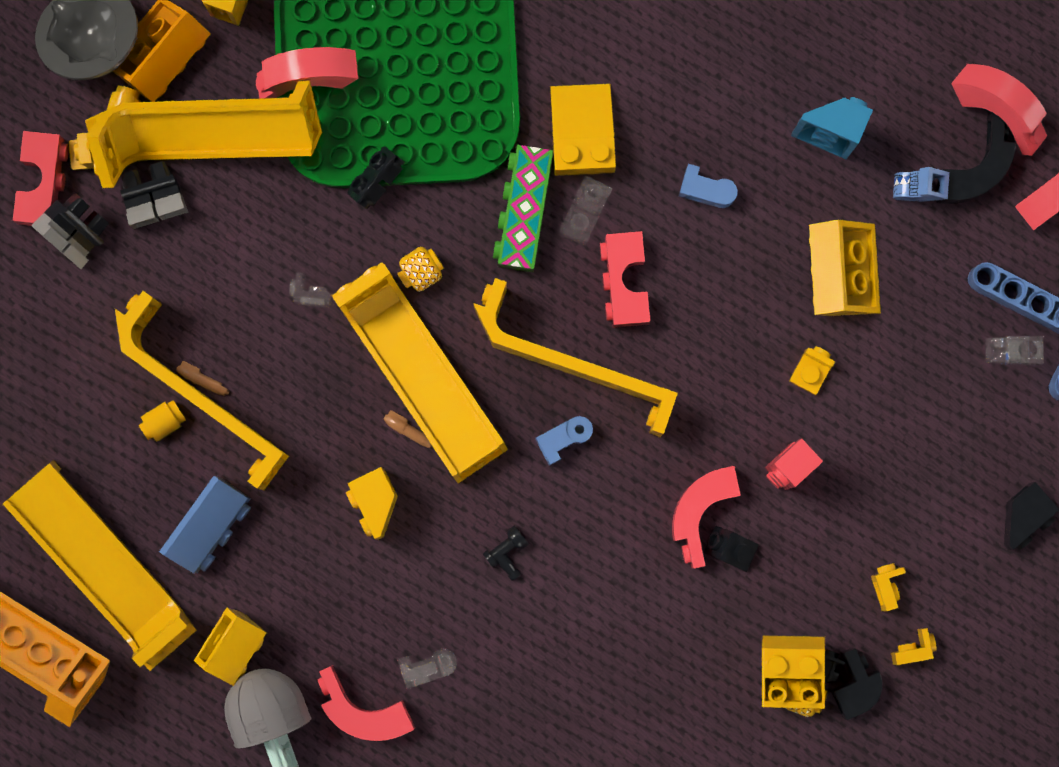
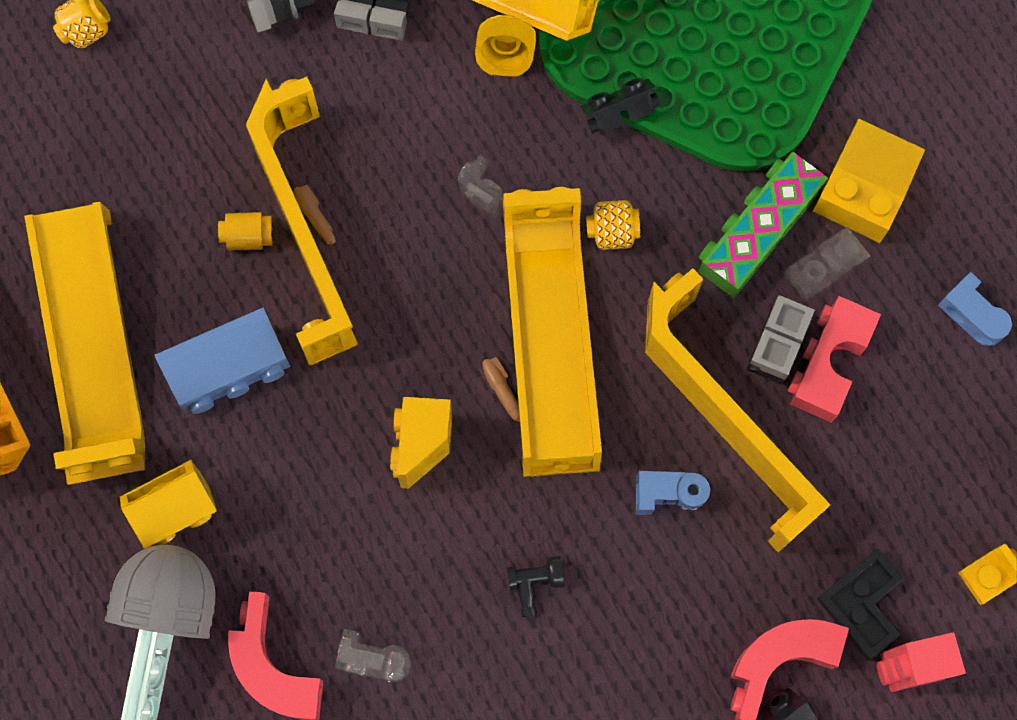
camera: 30 degrees right, 10 degrees down
(267, 179) = (505, 45): none -> yellow piece
(582, 290) = (780, 339): none -> light grey hips
(729, 445) = (853, 603): none -> black plate

